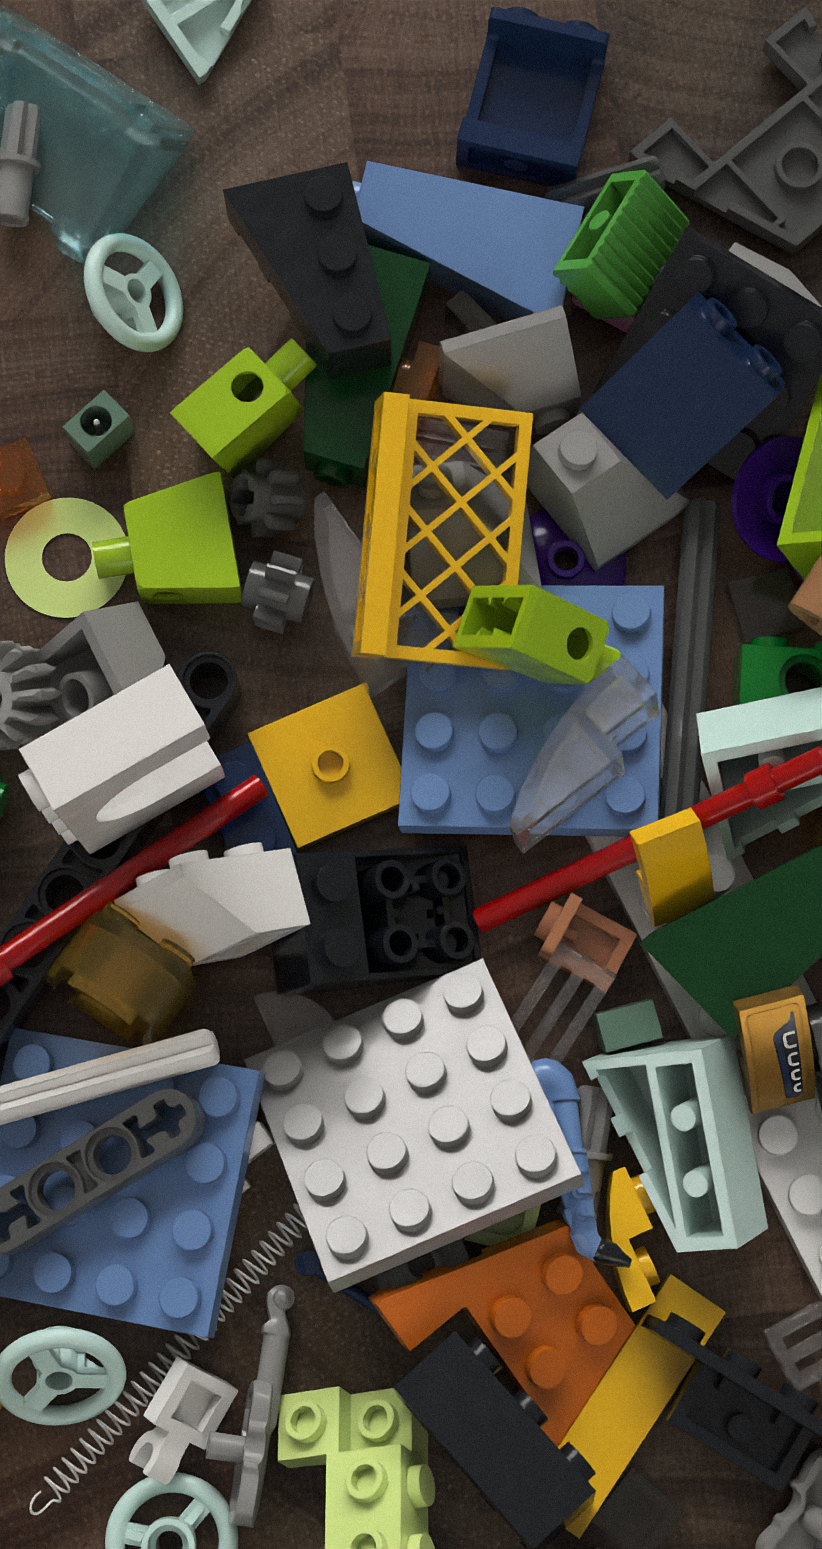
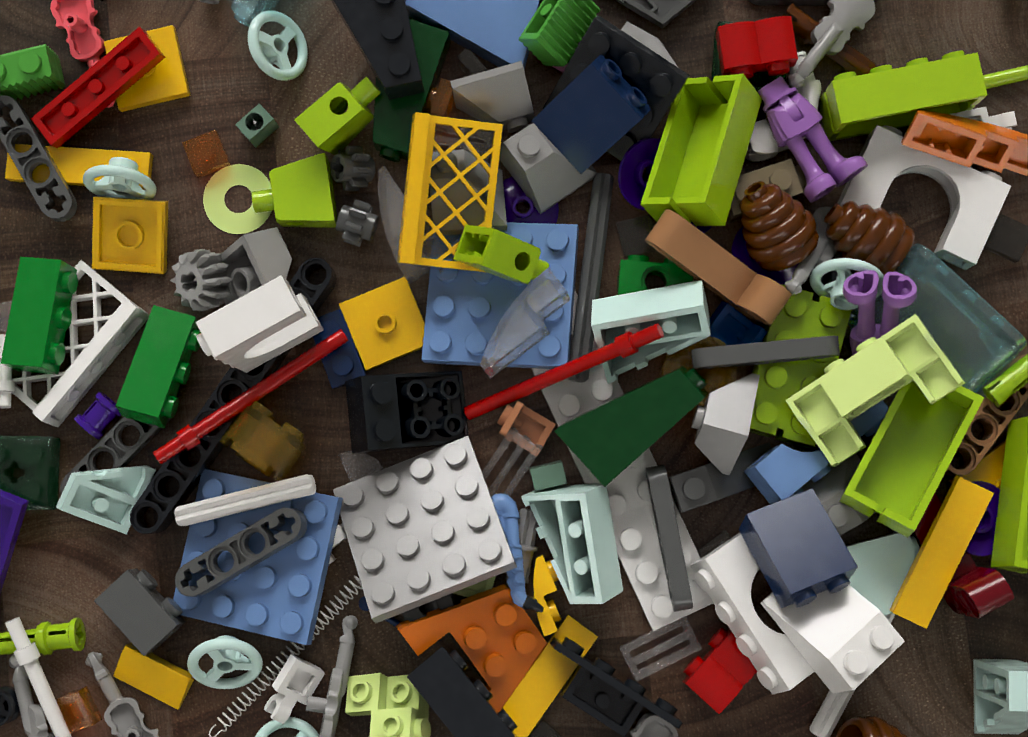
camera: 10 degrees right, 5 degrees up
(220, 904) = (318, 403): white slope -> none
(673, 866) = (574, 388): yellow slope -> none
(775, 1049) = (628, 492): pearl gold slope -> none

